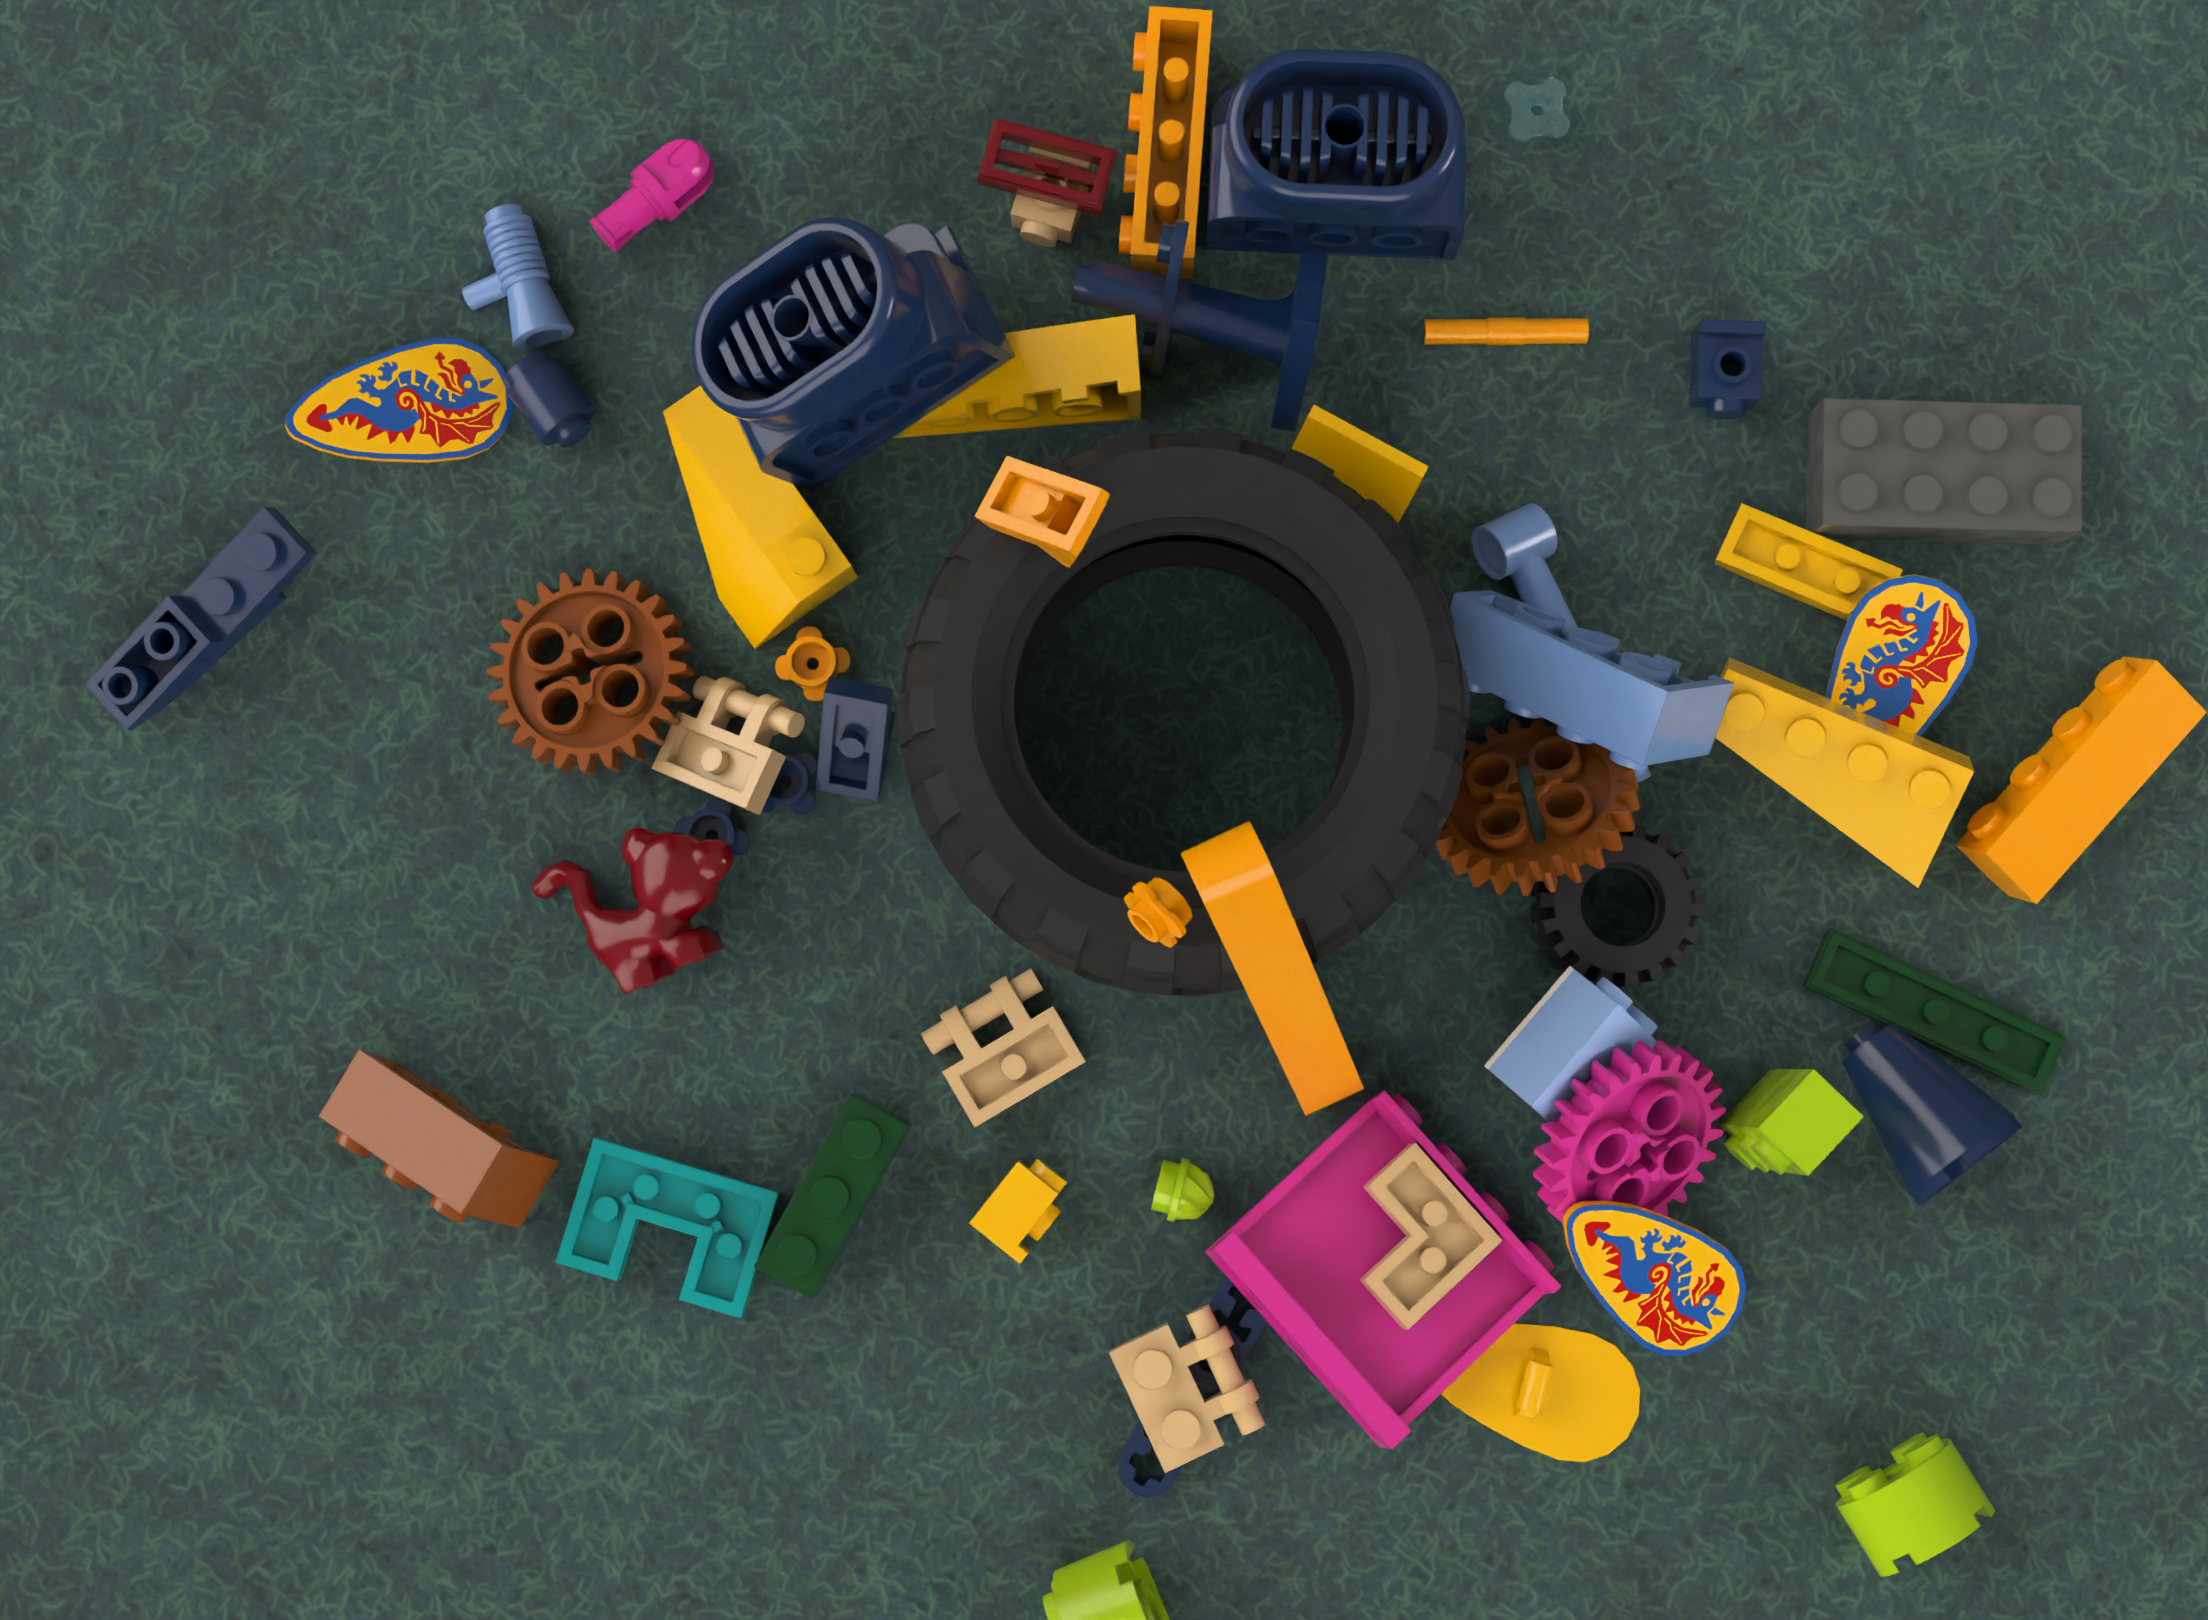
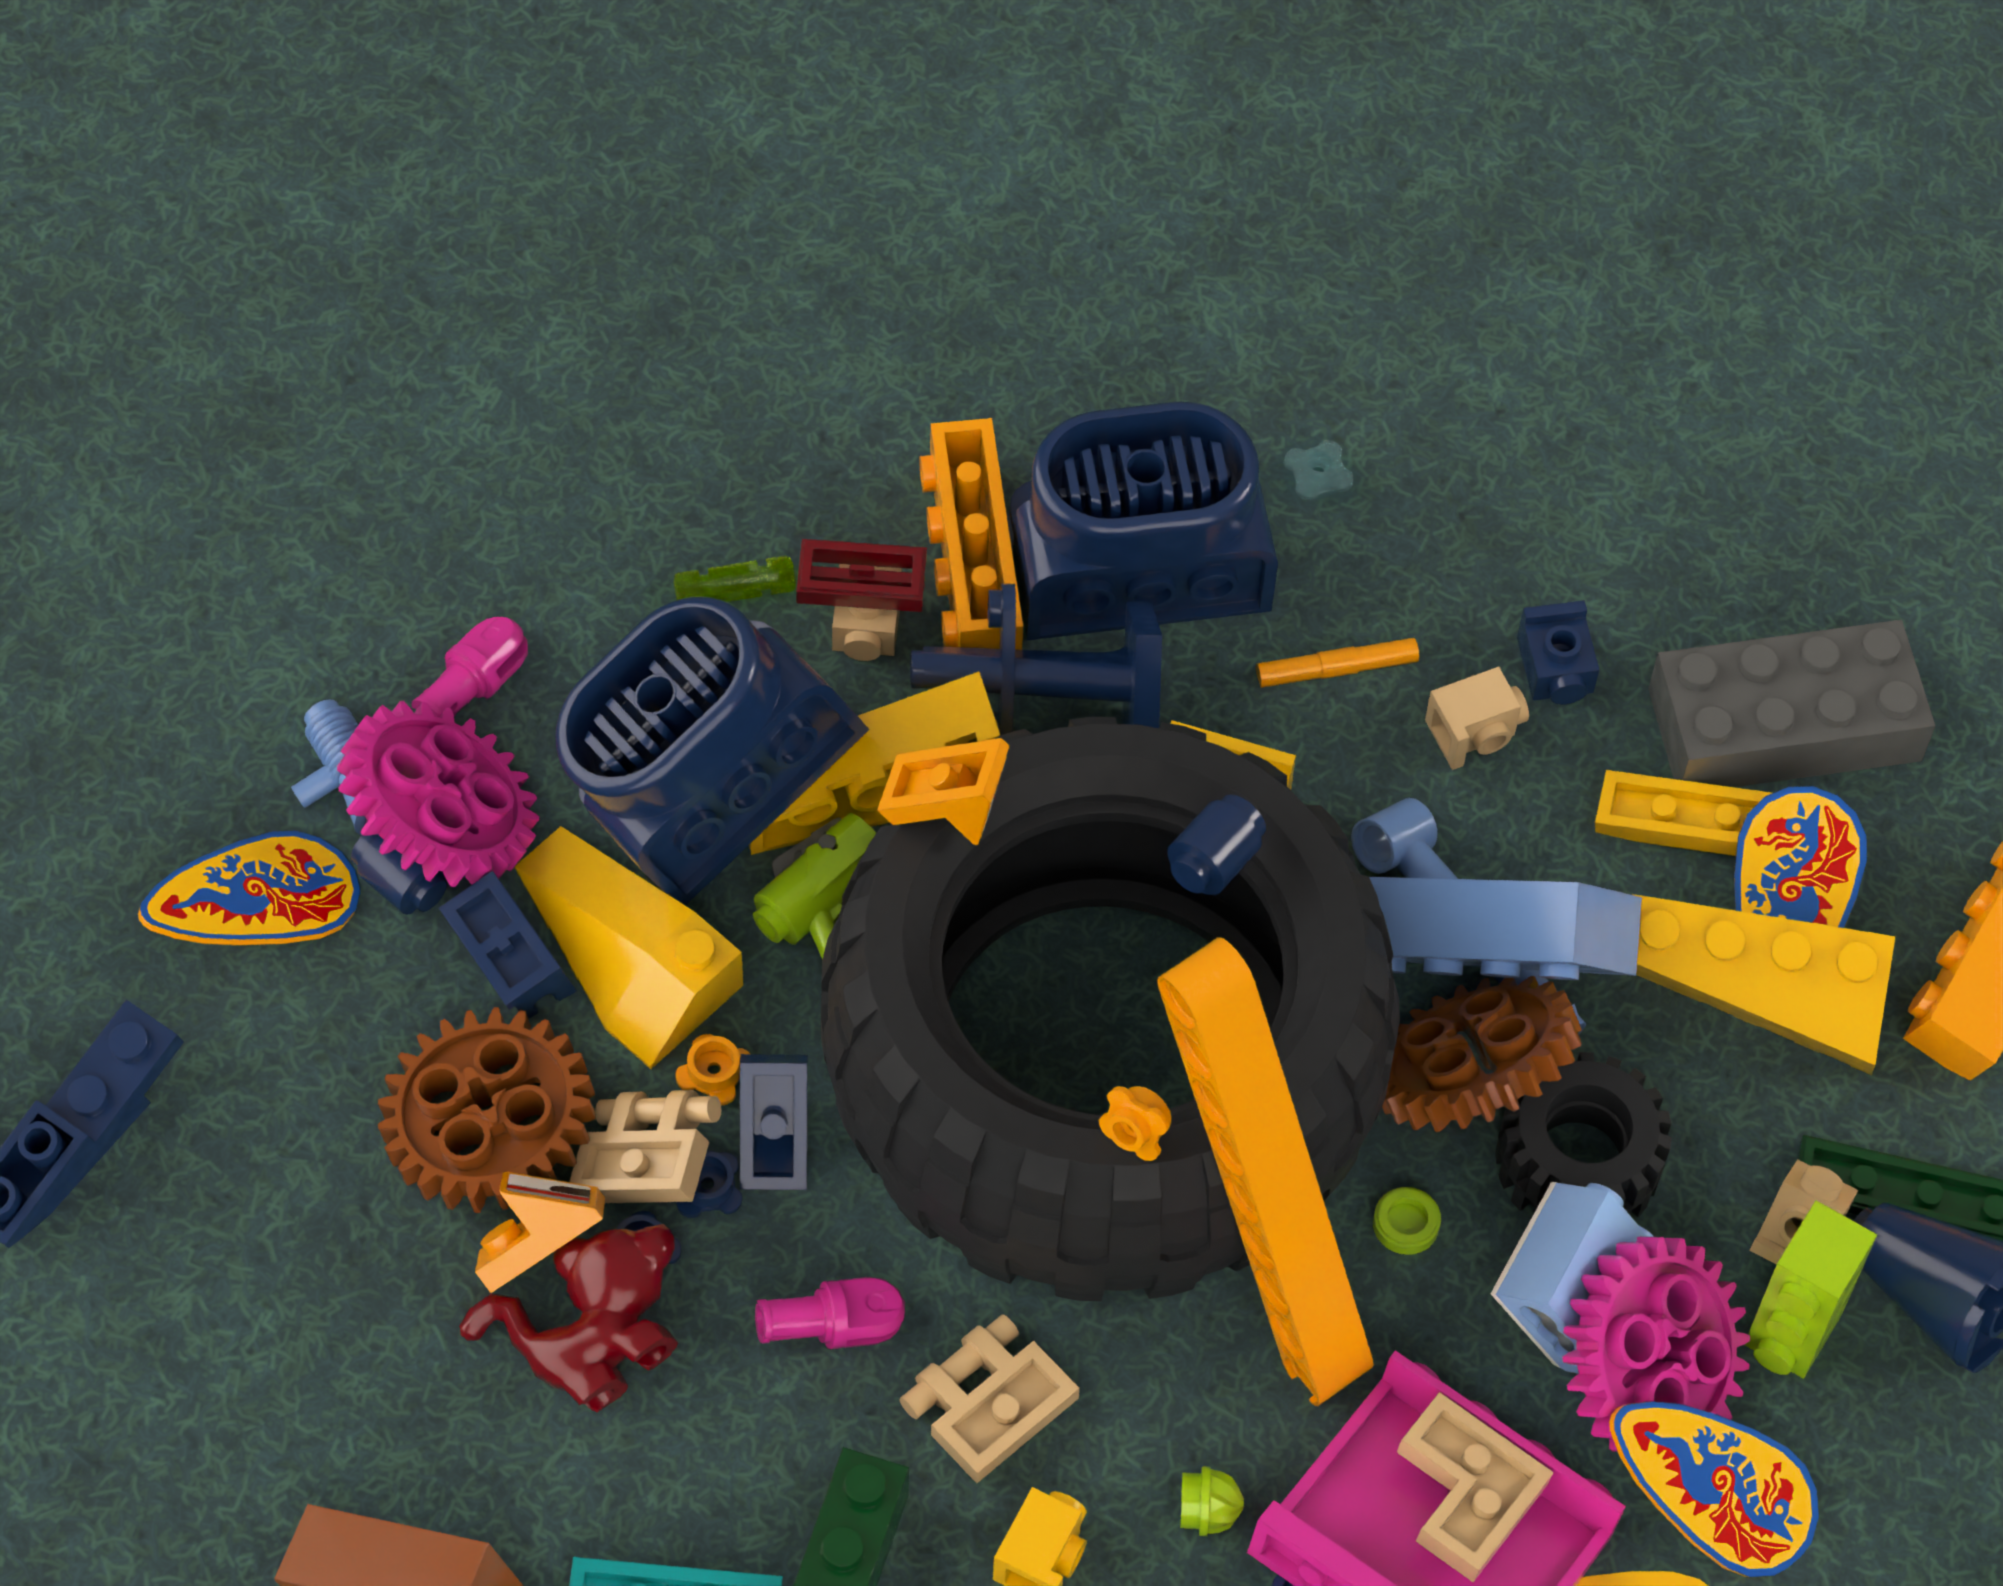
camera: 20 degrees left, 25 degrees down
(548, 356) = (437, 793): none -> dark pink gear
(612, 809) = (549, 1216): none -> light orange slope
(637, 504) = (505, 945): none -> dark blue hinge
(881, 941) = (839, 1314): none -> dark pink arm
(928, 134) = (737, 580): none -> clear neon green axle
(941, 488) = (811, 882): none -> lime piece
(1304, 621) = (1216, 845): none -> dark blue brick
(1431, 942) = (1406, 1220): none -> lime tile
(1627, 423) = (1475, 715): none -> tan brick
(1806, 1024) = (1793, 1202): none -> tan brick

